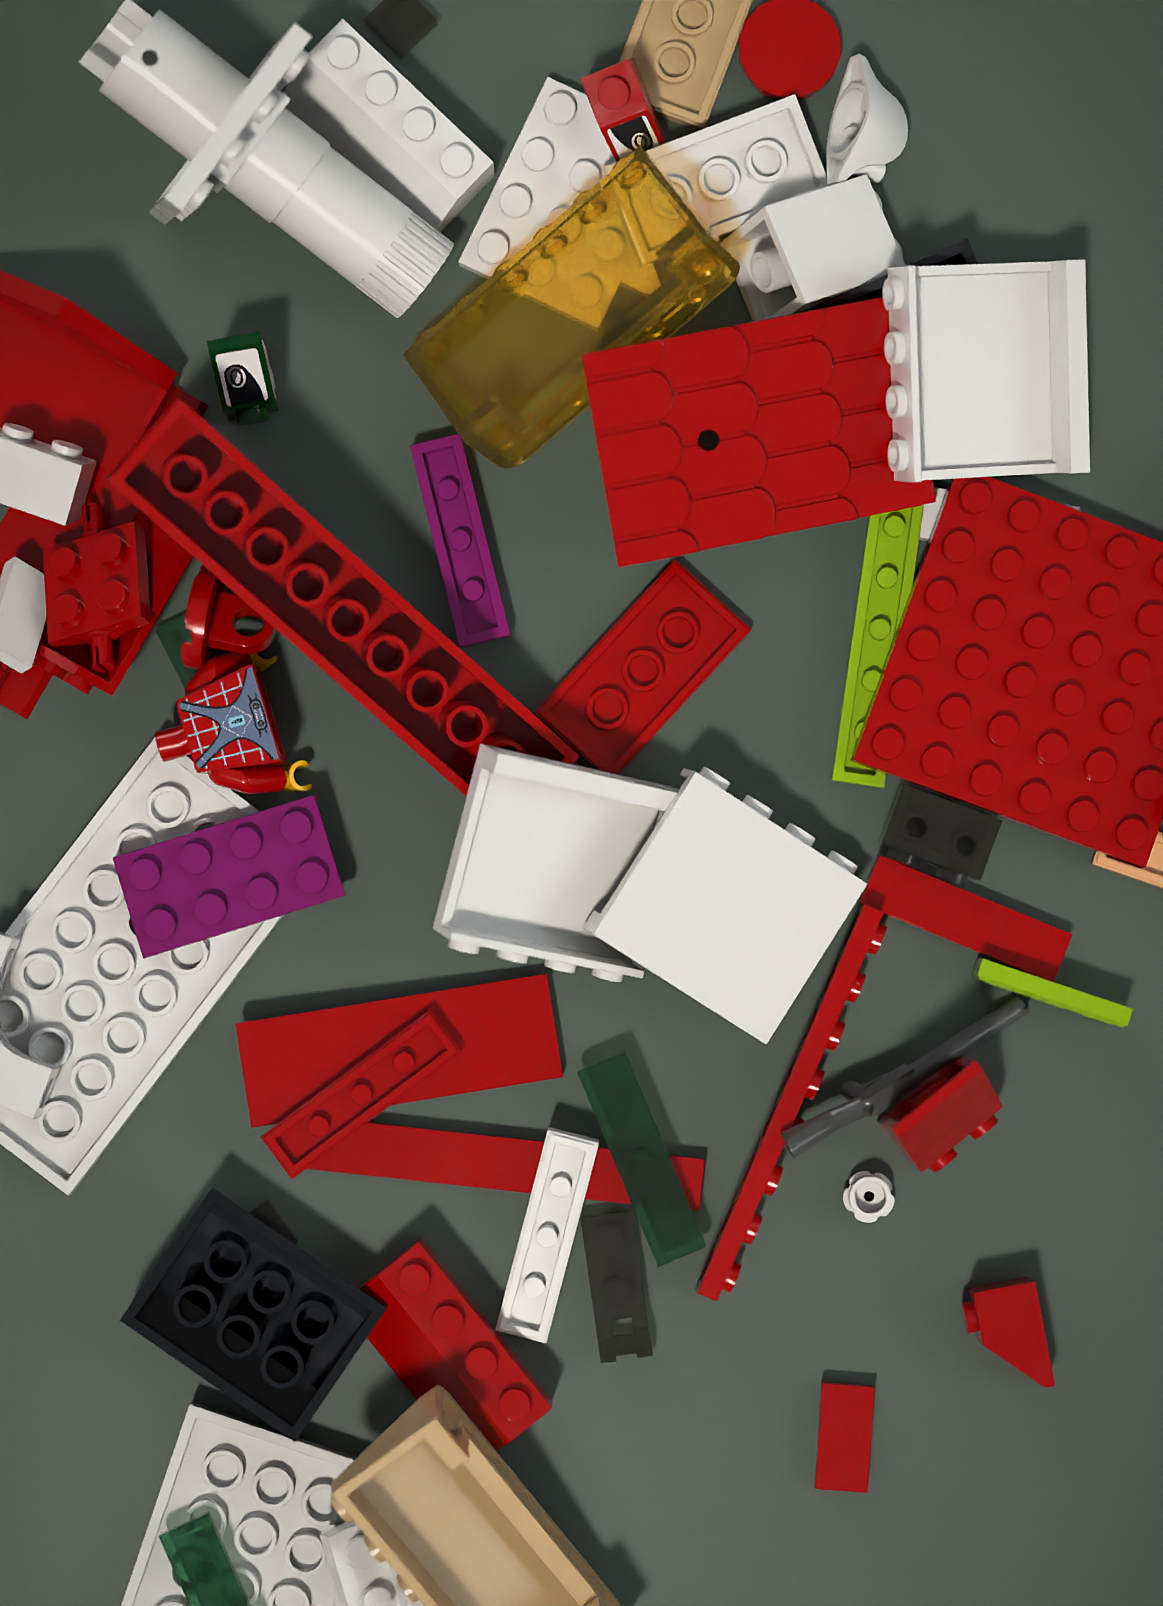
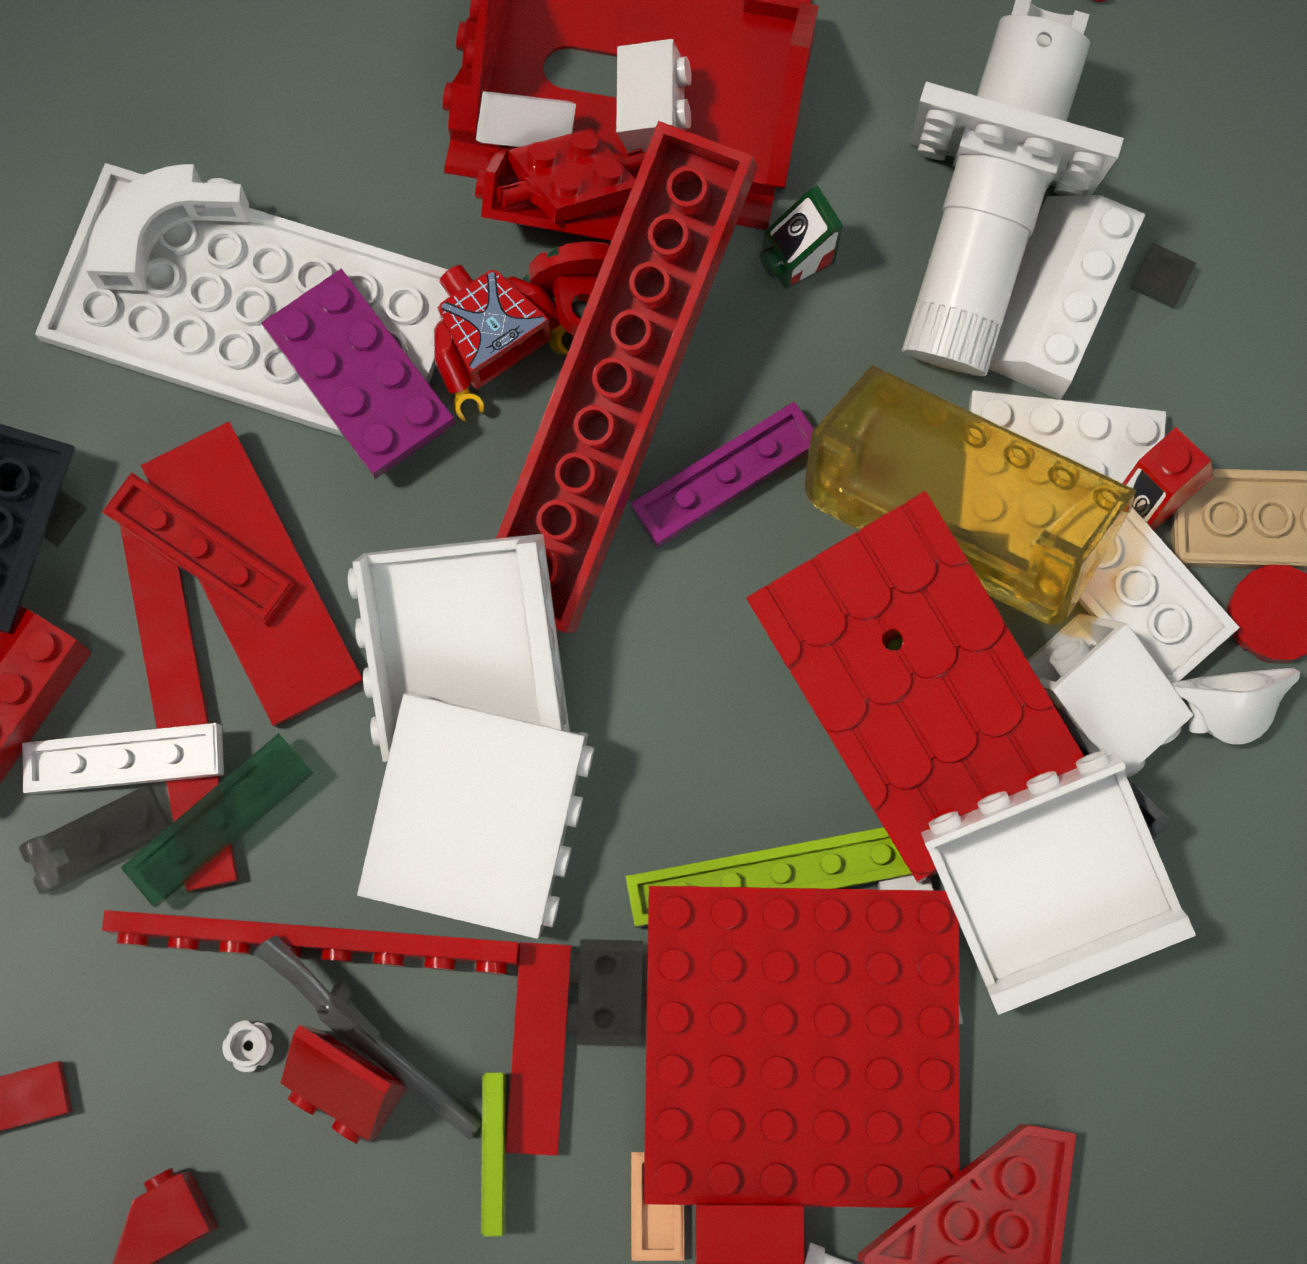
camera: 75 degrees right, 10 degrees down
(642, 670) = (667, 674): red tile -> none

